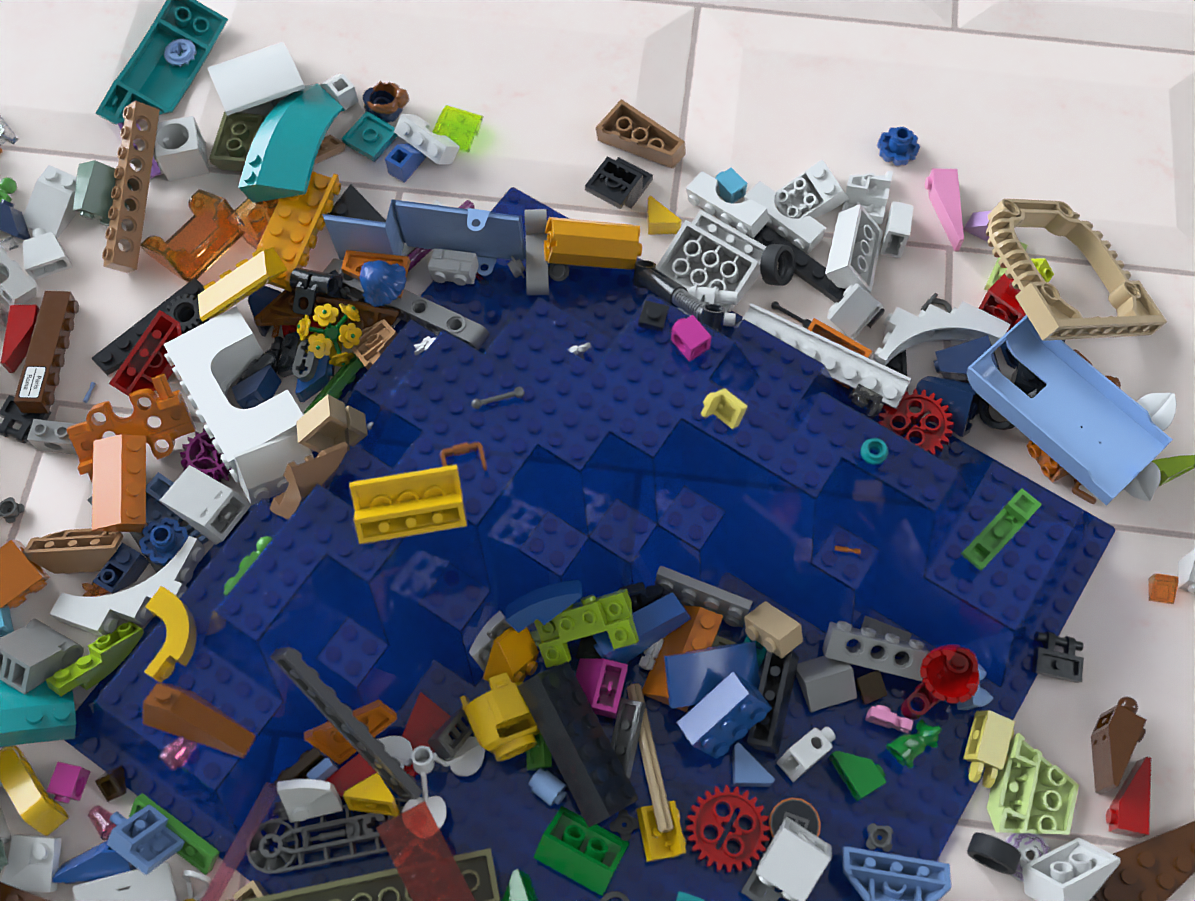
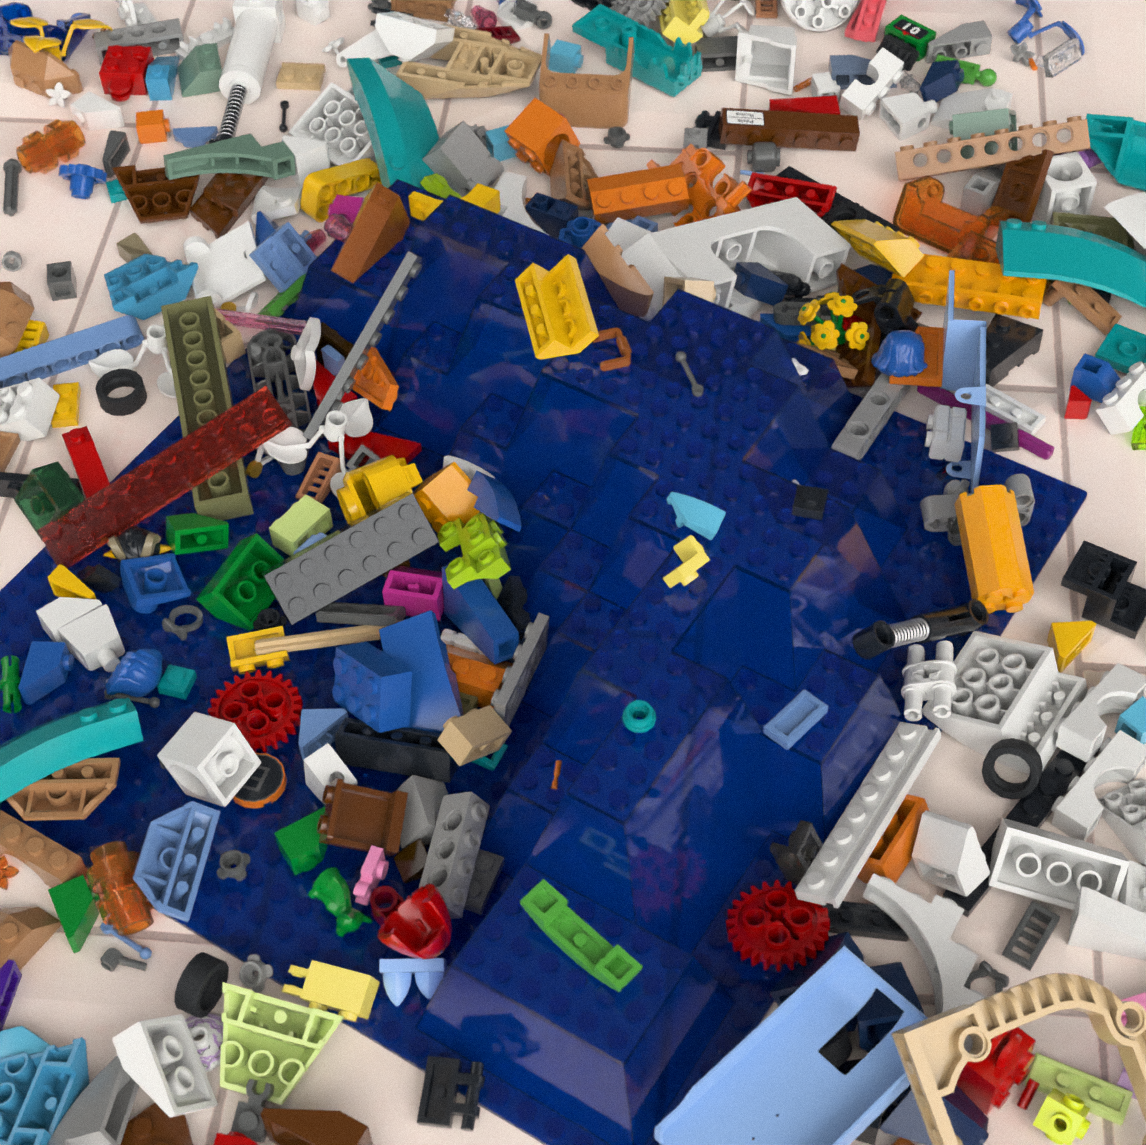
camera: 90 degrees right, 15 degrees down
(76, 377) = (764, 157): none -> dark grey head
(167, 207) = (981, 191): none -> light grey slope
(180, 174) = (1022, 185): none -> reddish brown wing
(371, 797) = (307, 403): yellow slope -> none
(423, 178) = (1077, 404): none -> slope
(440, 769) = (316, 469): none -> nougat slope
(516, 801) = (299, 523): none -> yellowish green brick
(668, 399) = (696, 514): none -> medium azure slope
(690, 337) = (778, 531): dark pink brick -> none
(793, 375) = (795, 719): none -> medium blue tile
(805, 323) = (957, 781): black hinge -> none
(846, 721) = (362, 817): none -> reddish brown panel
(889, 277) = (1042, 914): none -> dark grey slope
(970, 814) = (248, 976): none -> light grey plate
(1090, 805) = (247, 1115): none -> dark grey plate

